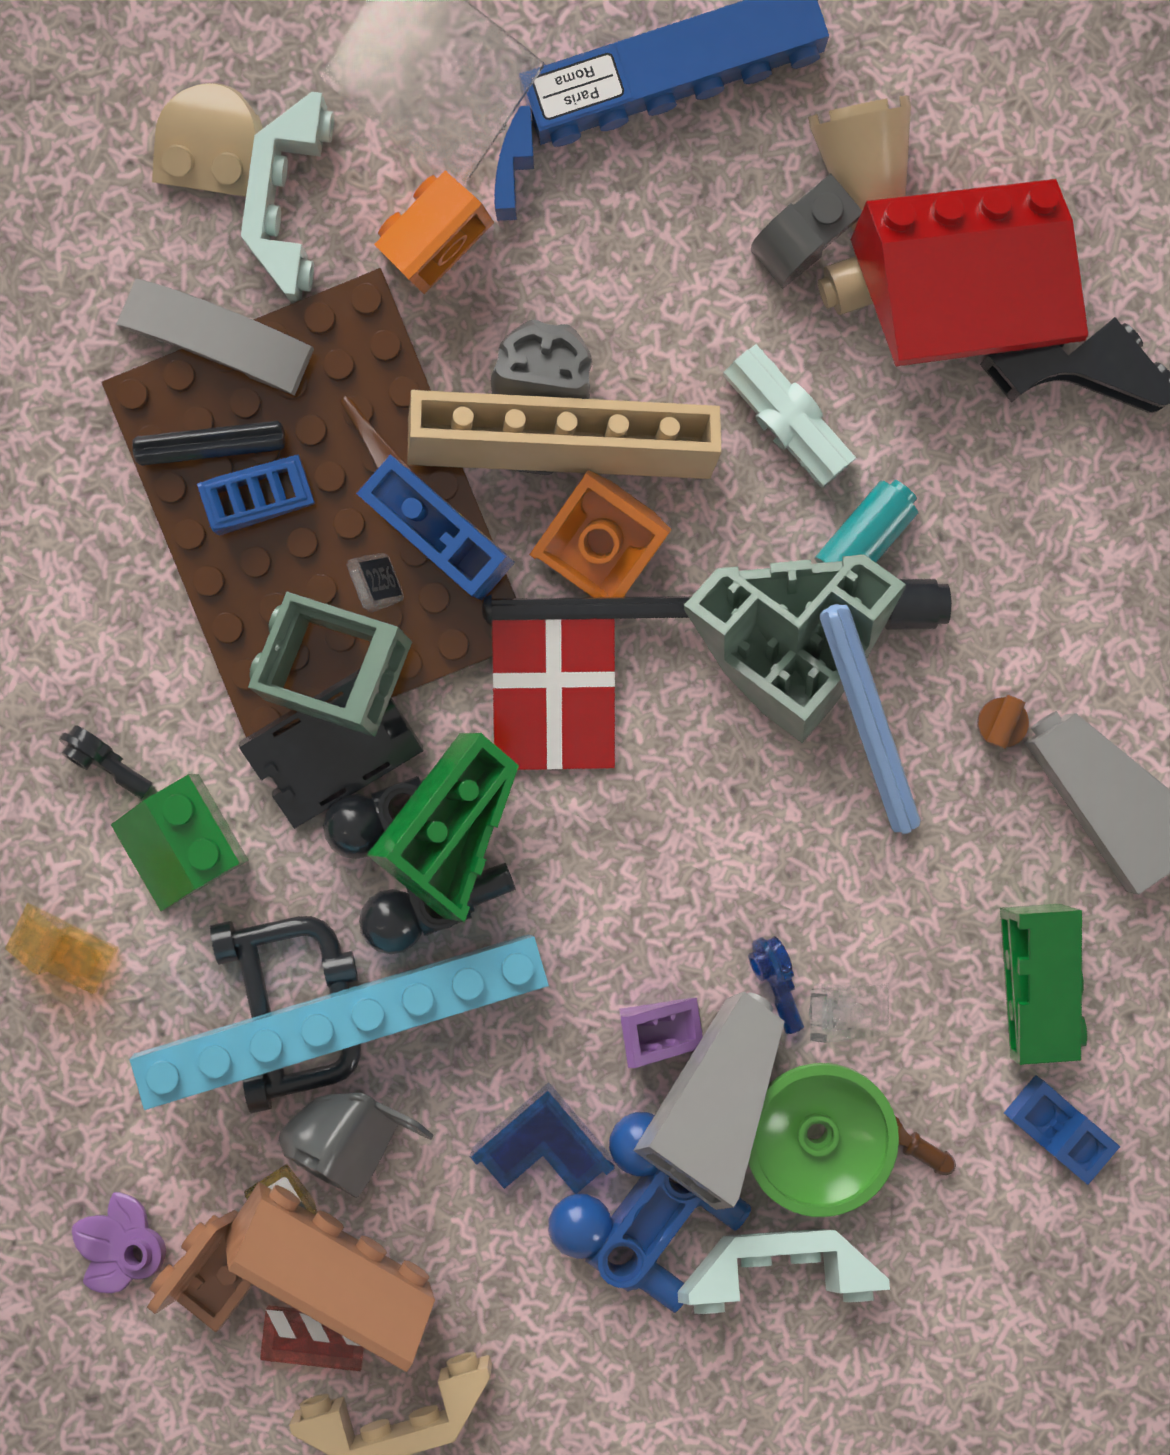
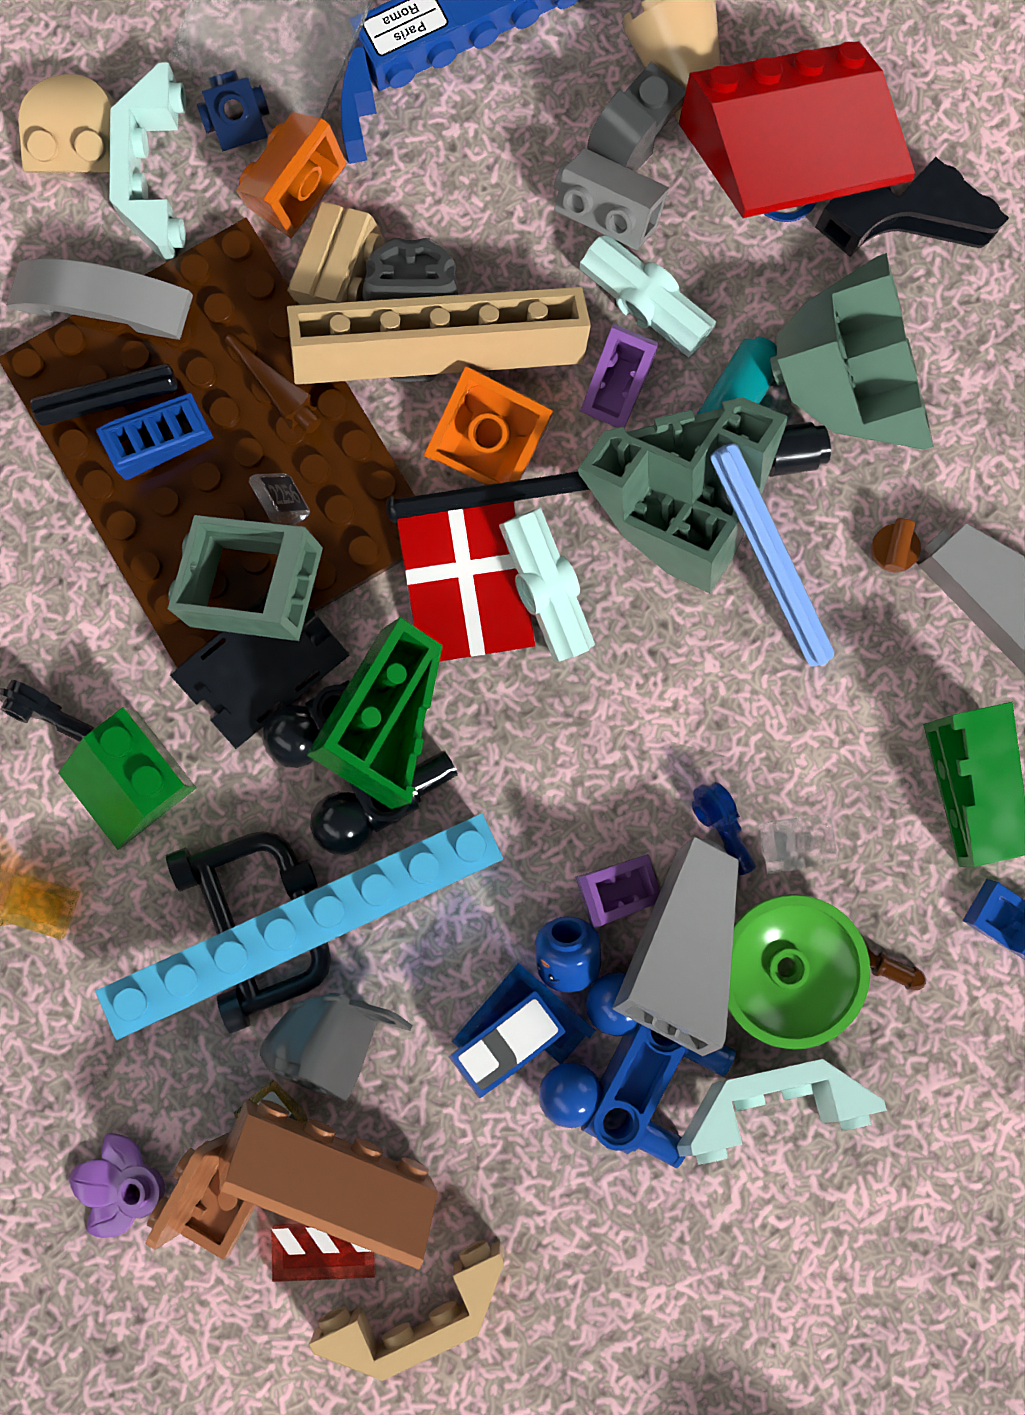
camera: 10 degrees left, 5 degrees down
(389, 170) = (233, 131): none -> dark blue brick
(436, 528) = (331, 436): blue slope -> none
(468, 333) = (335, 256): none -> tan brick
(525, 1167) = (507, 1044): none -> slope
(599, 1087) = (568, 954): none -> blue head
(636, 711) = (547, 585): none -> light aqua piece
(744, 503) = (619, 376): none -> medium lavender slope
(765, 308) = (609, 198): none -> light grey brick
(844, 287) = (682, 170): tan brick -> none
(990, 523) = (852, 360): none -> sand green brick

